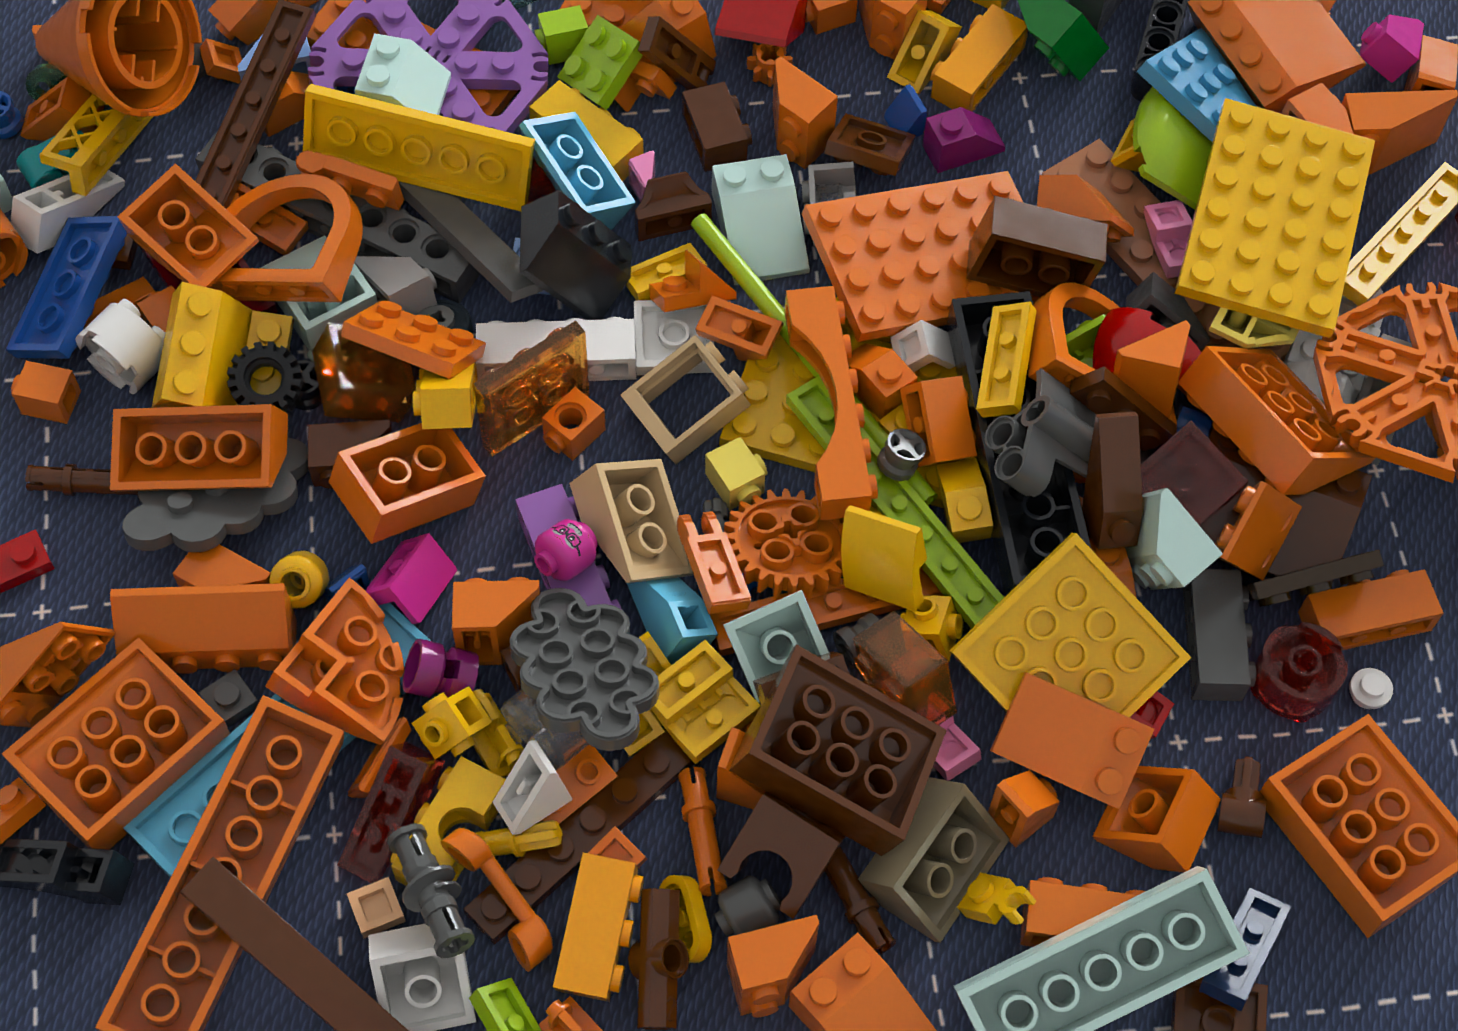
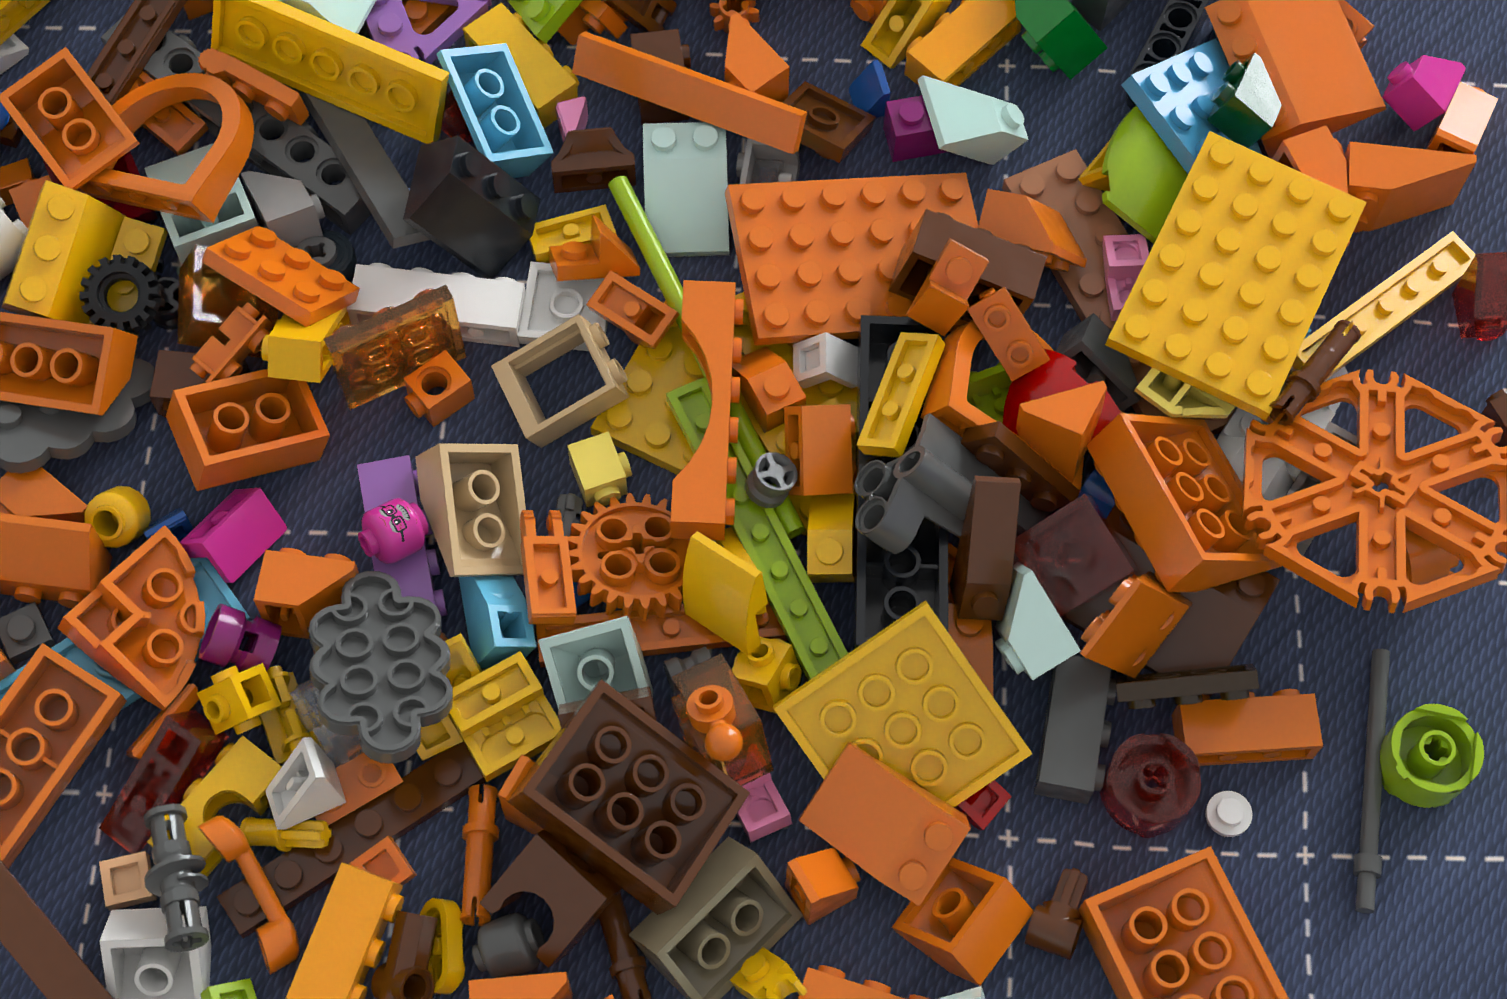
camera: 10 degrees right, 5 degrees up
(391, 396) = (244, 335): none -> orange hinge
(750, 131) = (689, 92): none -> orange tile
(902, 660) = (713, 712): none -> orange plate
(1006, 124) = (972, 121): none -> light aqua slope
(1028, 261) = (947, 288): none -> orange slope
(1088, 294) = (1007, 333): none -> orange hinge
(1246, 72) = (1246, 102): none -> dark green slope
(1359, 299) = (1305, 384): none -> reddish brown pin

